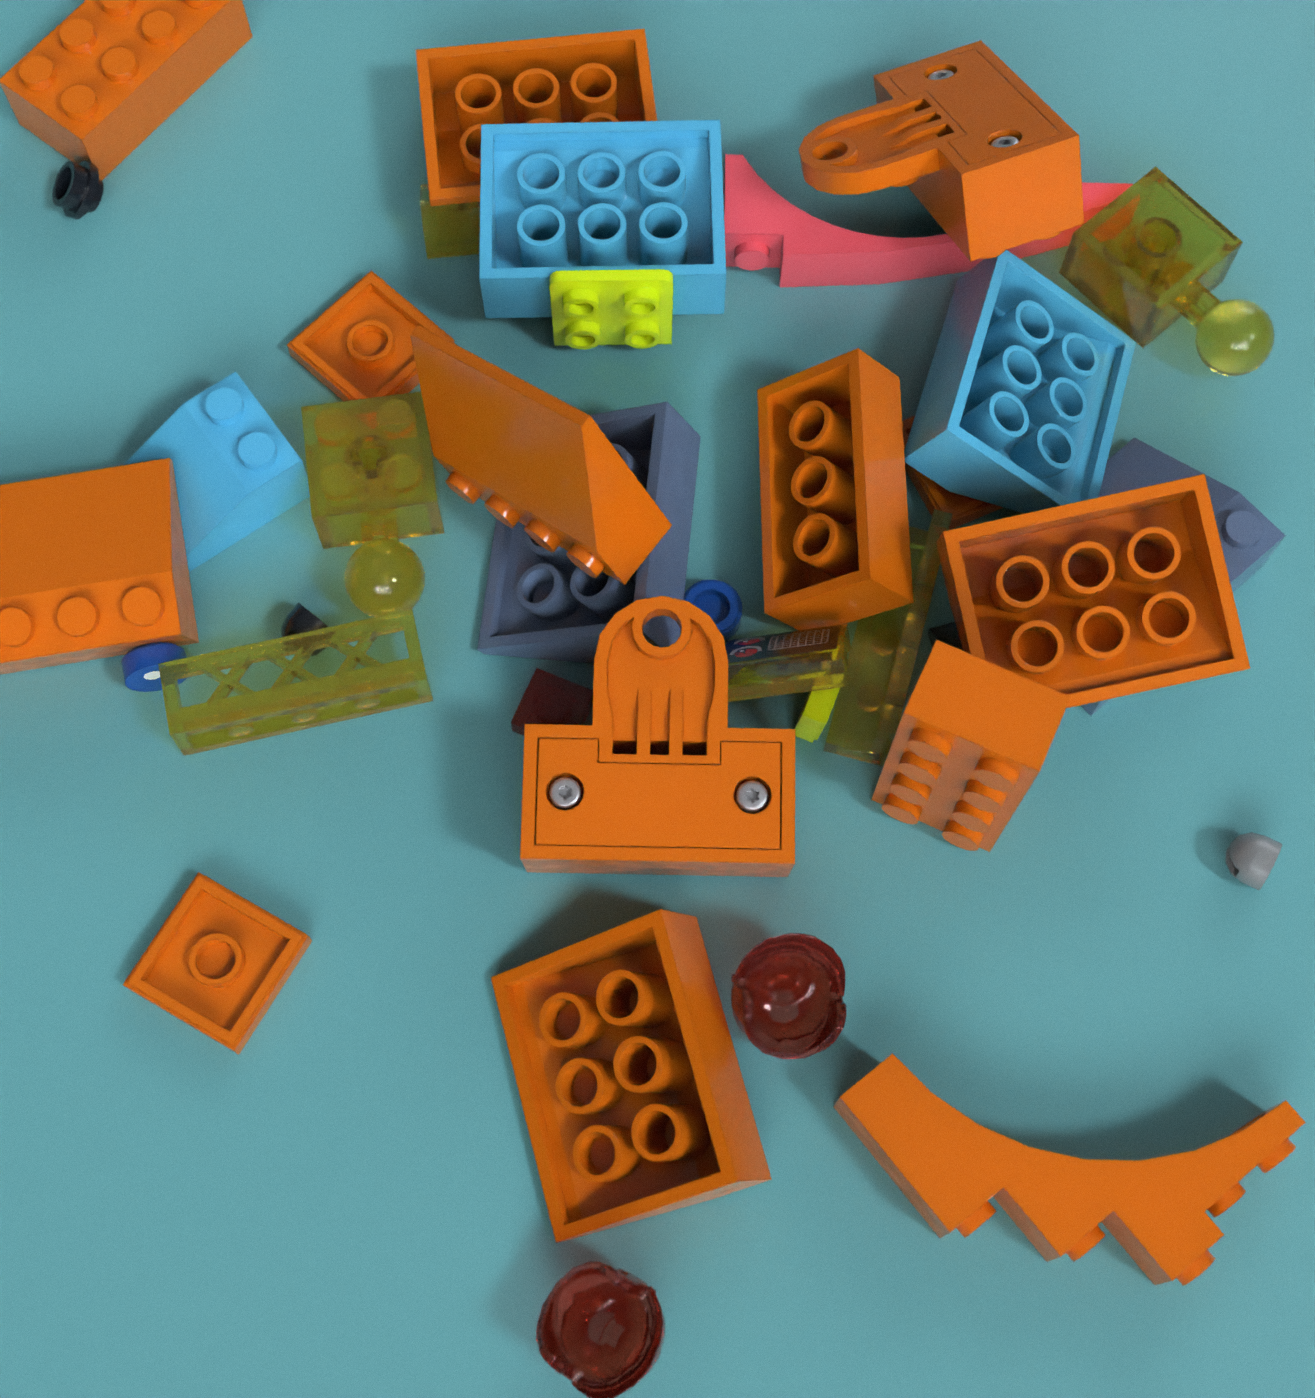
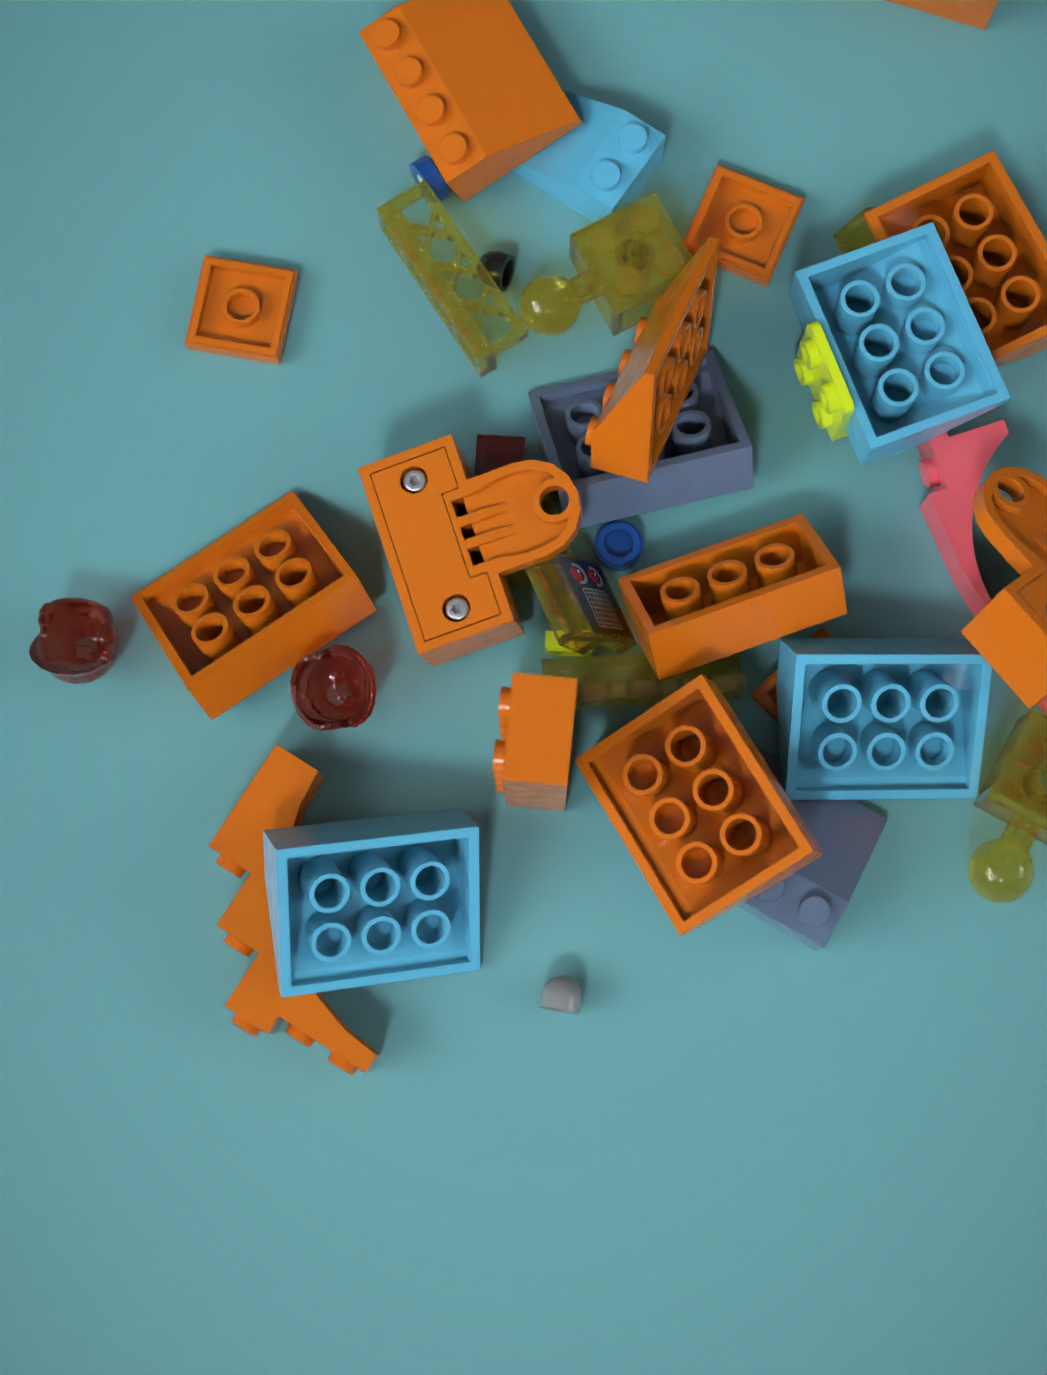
camera: 75 degrees right, 10 degrees up
(1081, 1040) = (373, 900): none -> medium azure slope

